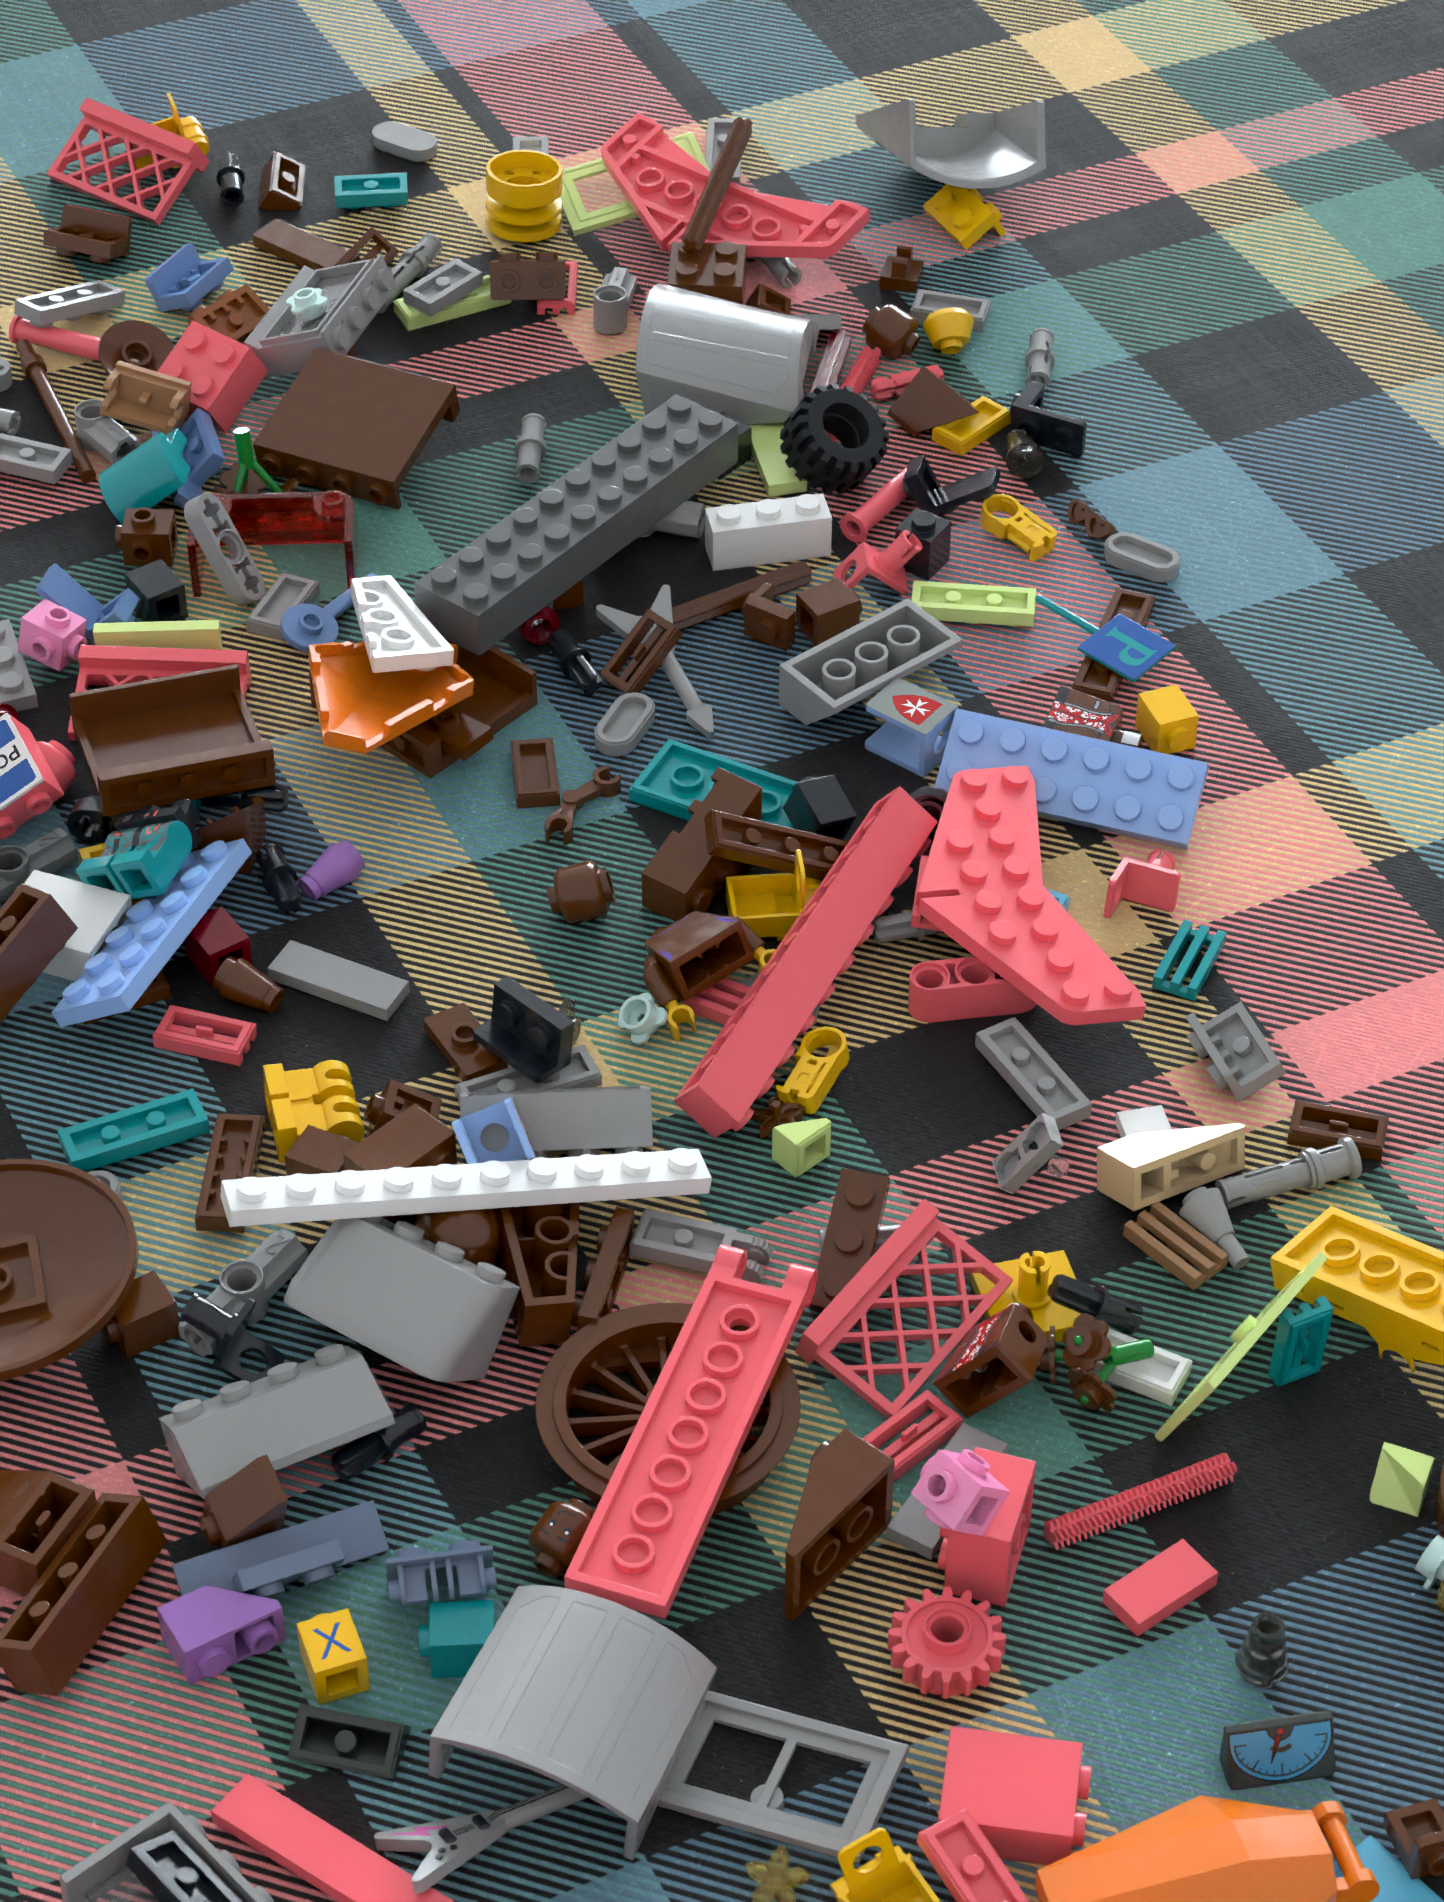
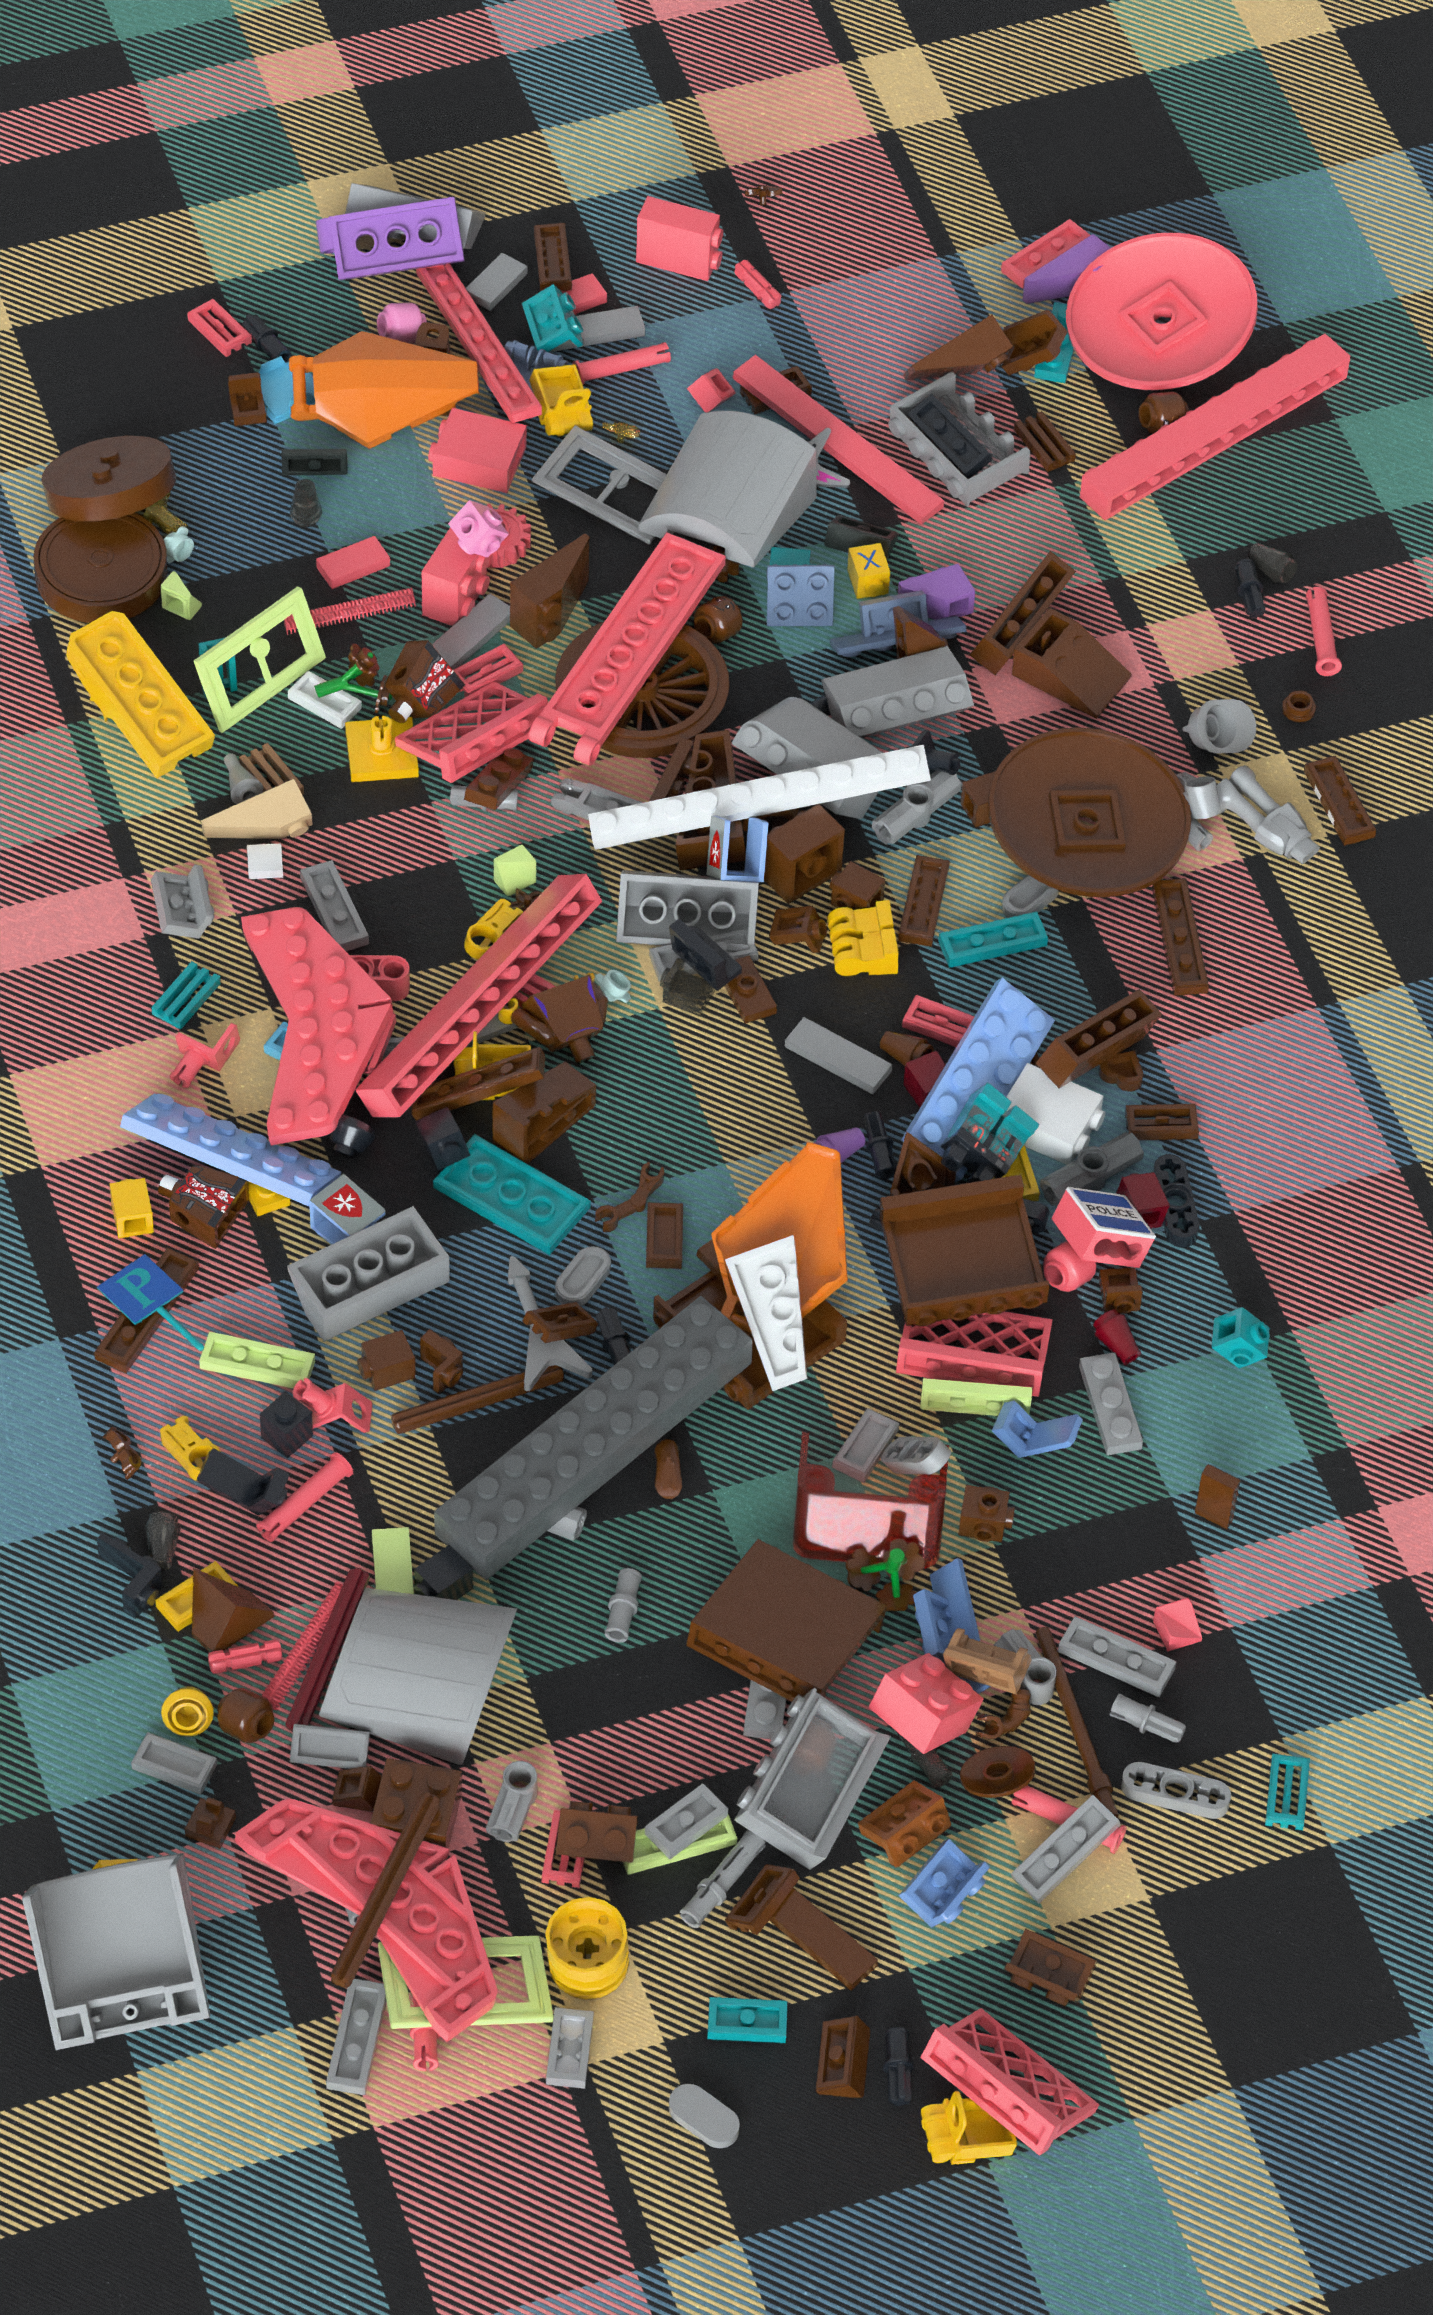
camera: 175 degrees left, 10 degrees up
(52, 634) = (1067, 1397): bright pink brick -> none
(145, 474) = (986, 1578): teal brick -> none
(159, 591) = (978, 1454): black brick -> none
(307, 303) = (821, 1764): light aqua plate -> none
(312, 624) = (837, 1411): medium blue piece -> none
(581, 892) = (643, 1096): reddish brown head -> none
(768, 531) = (422, 1456): white brick -> none
(851, 422) = (341, 1533): black tyre -> none
(1031, 1153) = (355, 830): light grey piece -> none
(1040, 356) = (106, 1671): light grey pin -> none
(1096, 1302) = (343, 718): black axle -> none
(1142, 557) = (88, 1408): light grey tile -> none
(1308, 1170) = (161, 810): light grey pin -> none
(1337, 1125) = (123, 851): reddish brown tile -> none

